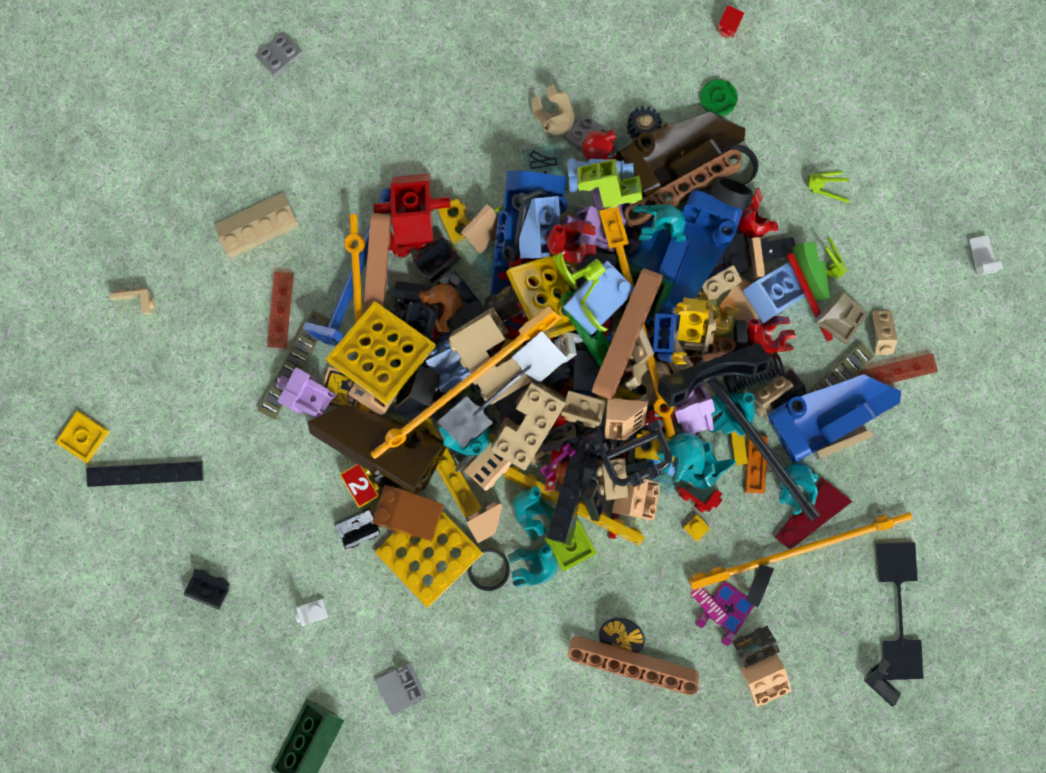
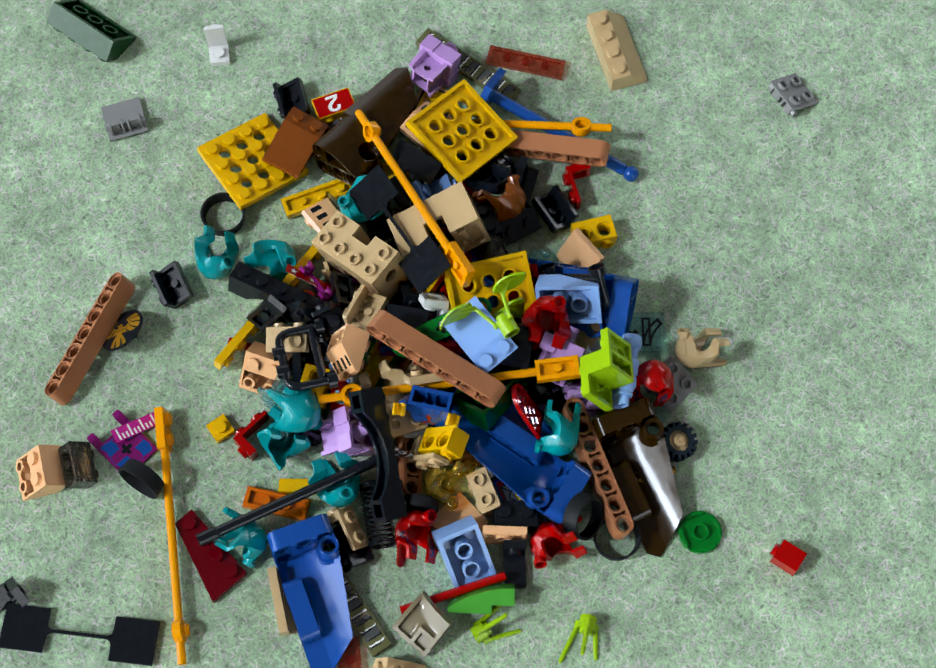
camera: 100 degrees right, 15 degrees down
(412, 208) = (612, 189): red slope -> none
(485, 524) = (270, 213): light nougat slope -> none
(568, 602) = (171, 285): none -> black bracket
(579, 551) = (225, 303): lime plate -> none
(650, 257) = (535, 428): none -> red window

